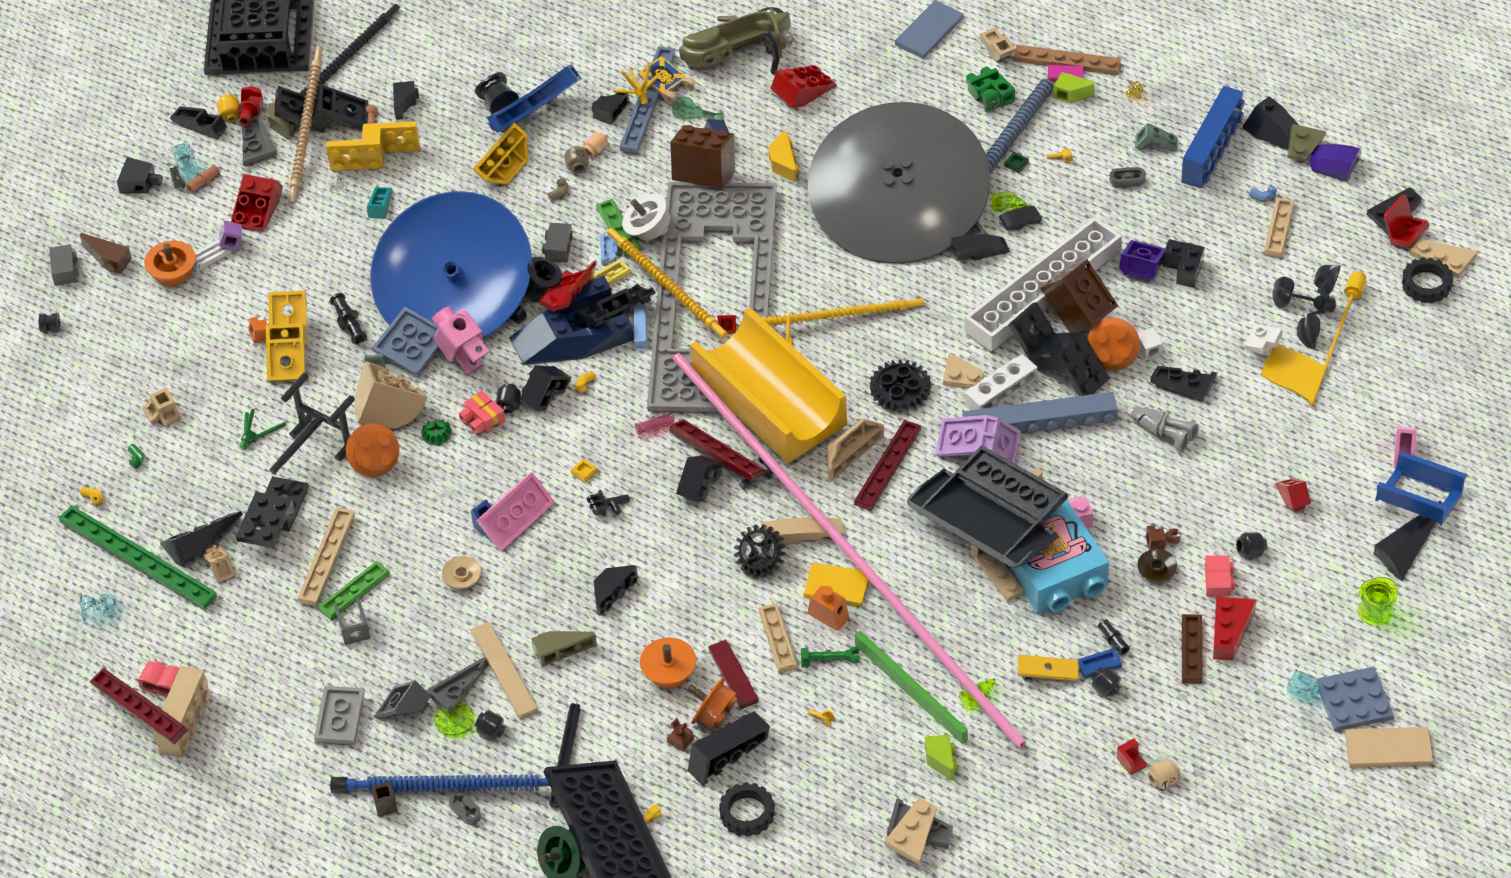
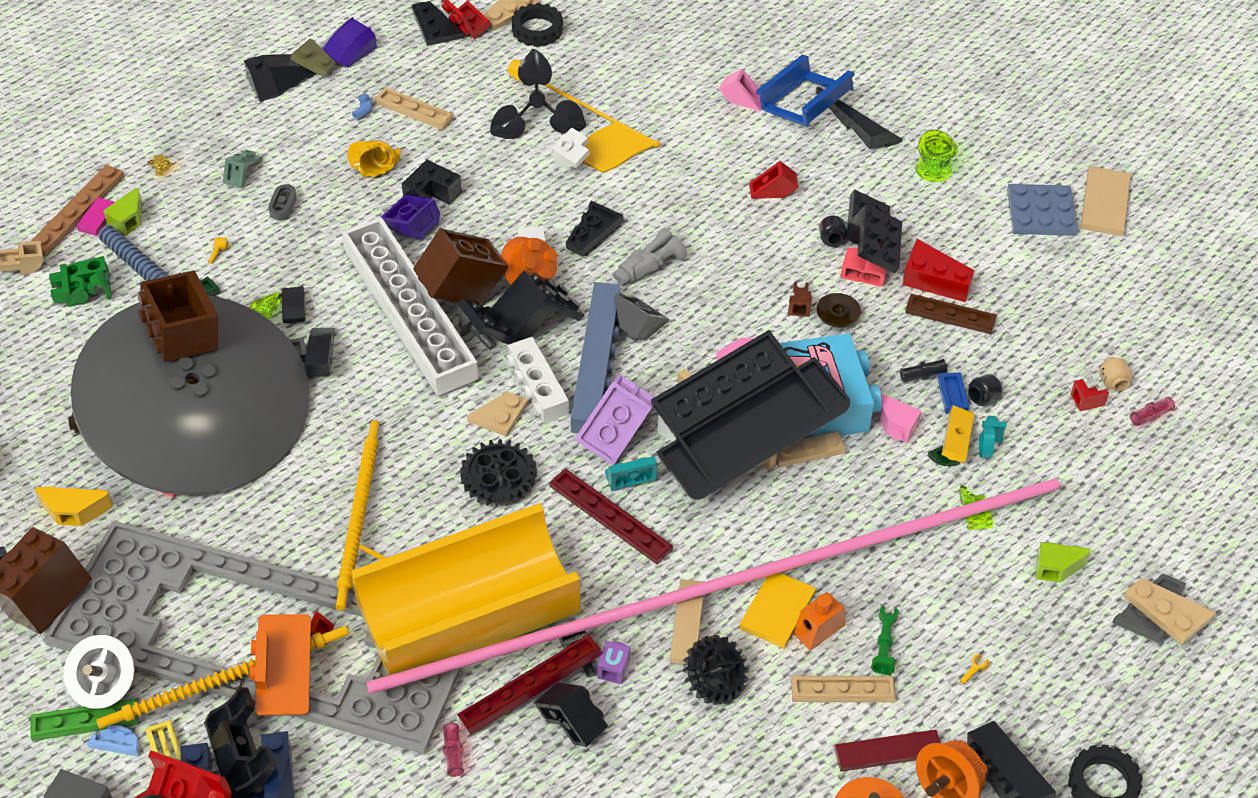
camera: 80 degrees left, 0 degrees up
(640, 336) = (298, 733): light blue piece -> none
(679, 303) = (282, 664): none -> orange bracket
(753, 494) = (613, 662): none -> medium lavender brick
(852, 445) = (577, 546): tan wedge -> none
(911, 687) = (953, 567): bright green tile -> none
(925, 461) = (632, 473): none -> teal bracket
(935, 137) = (178, 315): none -> reddish brown container
(1050, 625) = (898, 418): none -> bright pink slope
(1059, 691) = (992, 432): none -> teal piece
(1094, 432) = (637, 317): none -> dark grey slope
(1131, 806) = (1152, 411): none -> clear pink pin
(1198, 215) = (372, 157): none -> yellow hair
(1213, 137) = (273, 117): blue brick -> none
(1253, 567) = (874, 231): none -> black bracket
(1302, 686) = (1024, 239): clear light blue brick -> none

